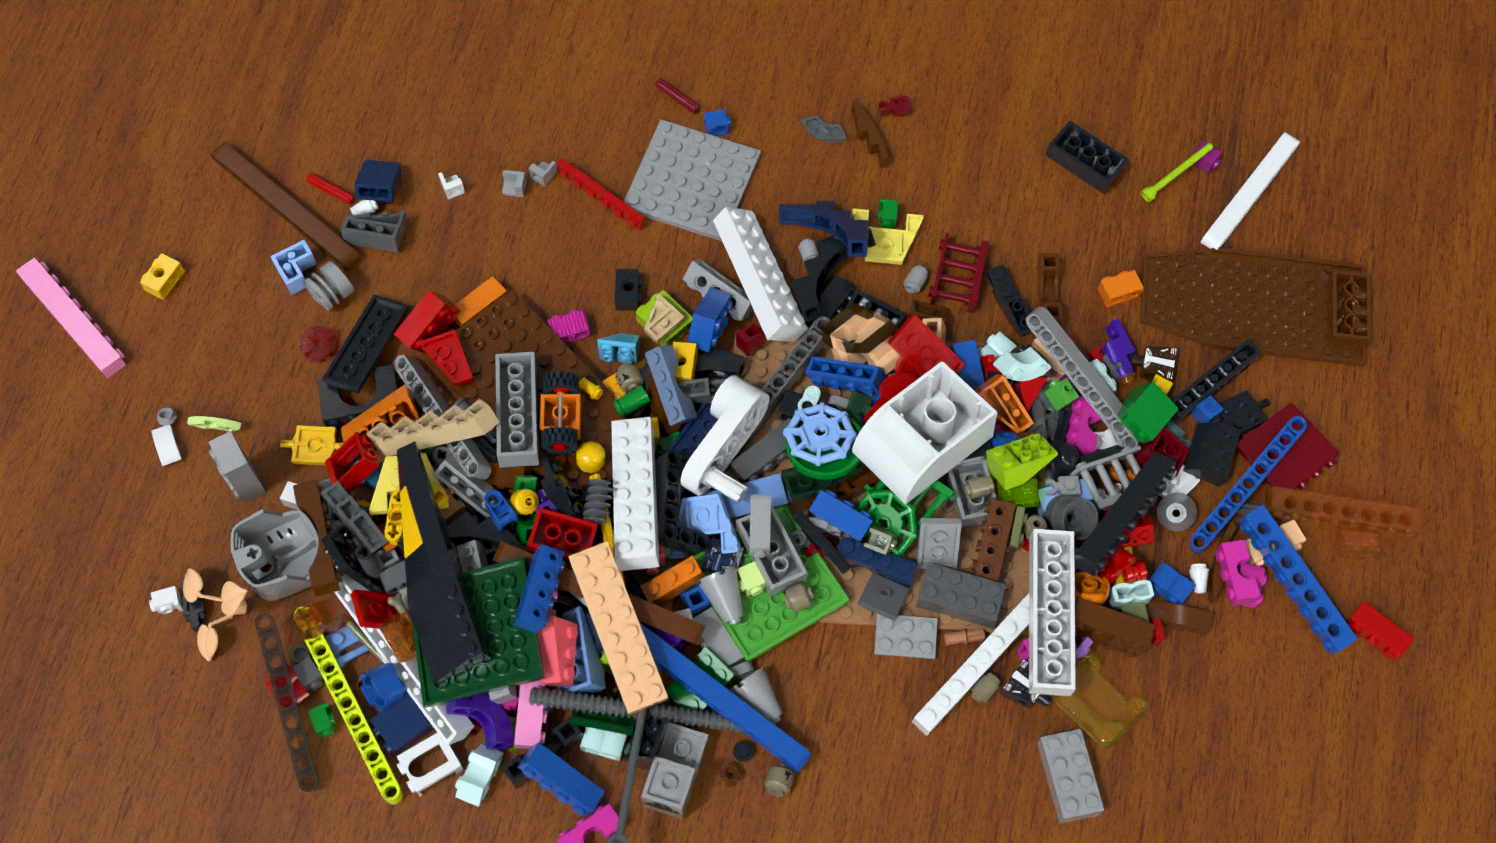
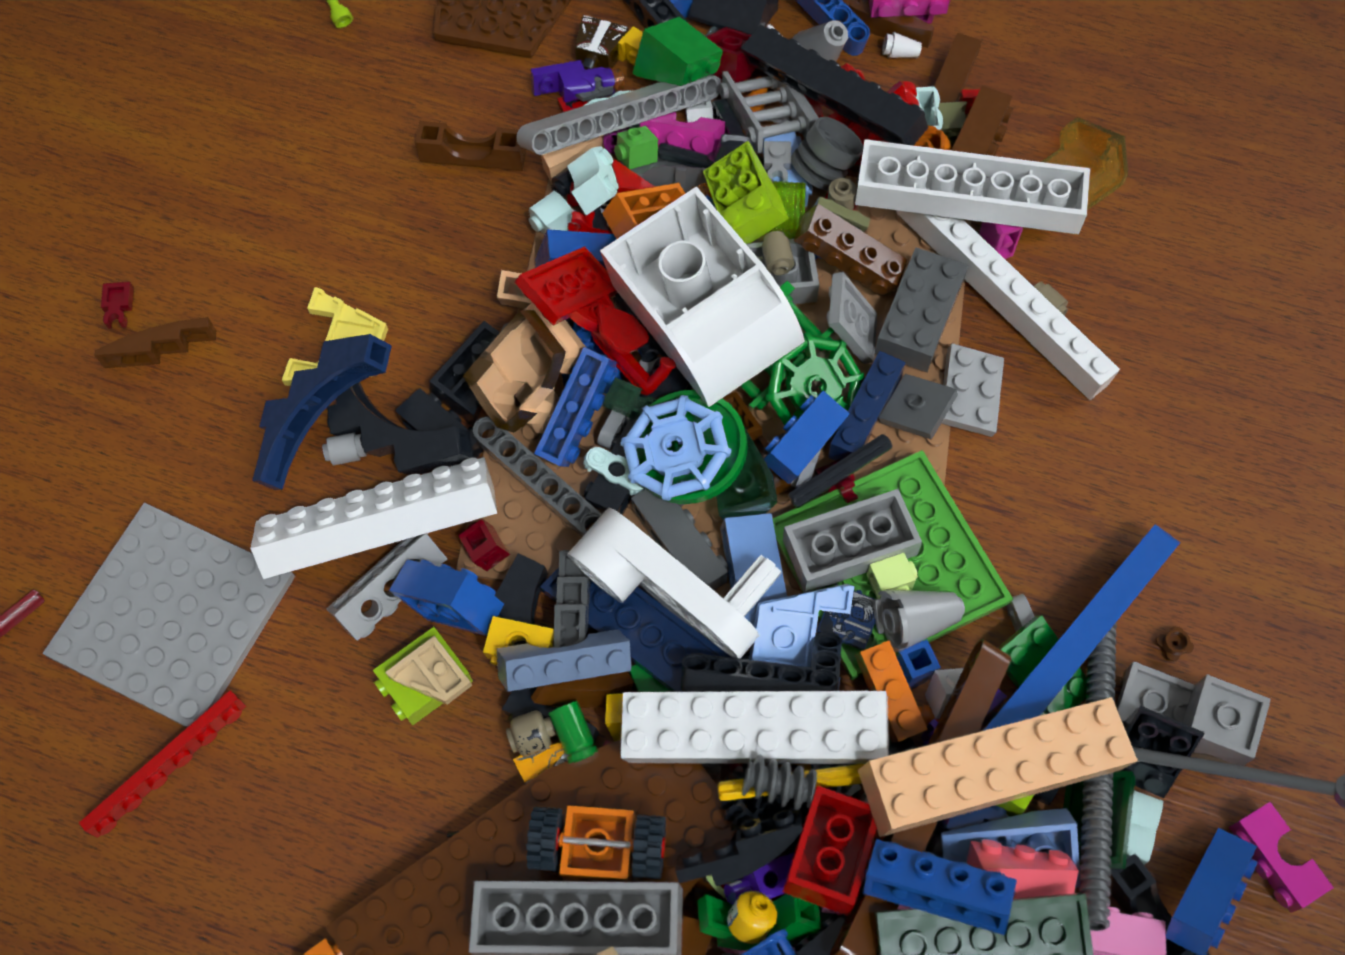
camera: 80 degrees left, 0 degrees up
(514, 183) = (105, 917): light grey panel -> none
(543, 172) = (95, 863): light grey panel -> none
(570, 326) = (409, 832): dark pink brick -> none
(590, 457) = (673, 800): yellow hair -> none
(594, 391) = (547, 793): yellow pin -> none
(619, 348) = (464, 745): medium azure slope -> none
(627, 299) = (372, 742): black brick -> none
(716, 122) = (75, 563): blue brick -> none
(718, 639) = (956, 645): light grey brick -> none
(743, 751) = (1140, 623): black plate -> none
(759, 695) = (1062, 590): light grey cone -> none
(760, 526) = (831, 539): light grey slope -> none
(779, 780) = (1186, 575): dark tan head -> none
(798, 534) = (831, 498): dark grey plate -> none
(798, 597) = (925, 511): dark tan head -> none
(823, 131) = (130, 410): dark grey tile -> none
(881, 540) = (848, 387): olive window -> none
(887, 213) = (301, 333): green brick -> none
(915, 279) = (418, 311): light grey brick -> none
(926, 310) = (478, 302): reddish brown slope -> none
(964, 636) = (972, 319): nougat axle -> none
(972, 283) = (416, 230): dark red fence -> none
(1008, 299) = (477, 199): black slope -> none
(1018, 688) = (1043, 255): black torso -> none
(1070, 776) = (1168, 220): light grey brick -> none
(1087, 157) = (269, 73): black brick -> none
(1120, 288) = (479, 68): orange brick -> none
(1171, 584) = (914, 67): blue brick -> none

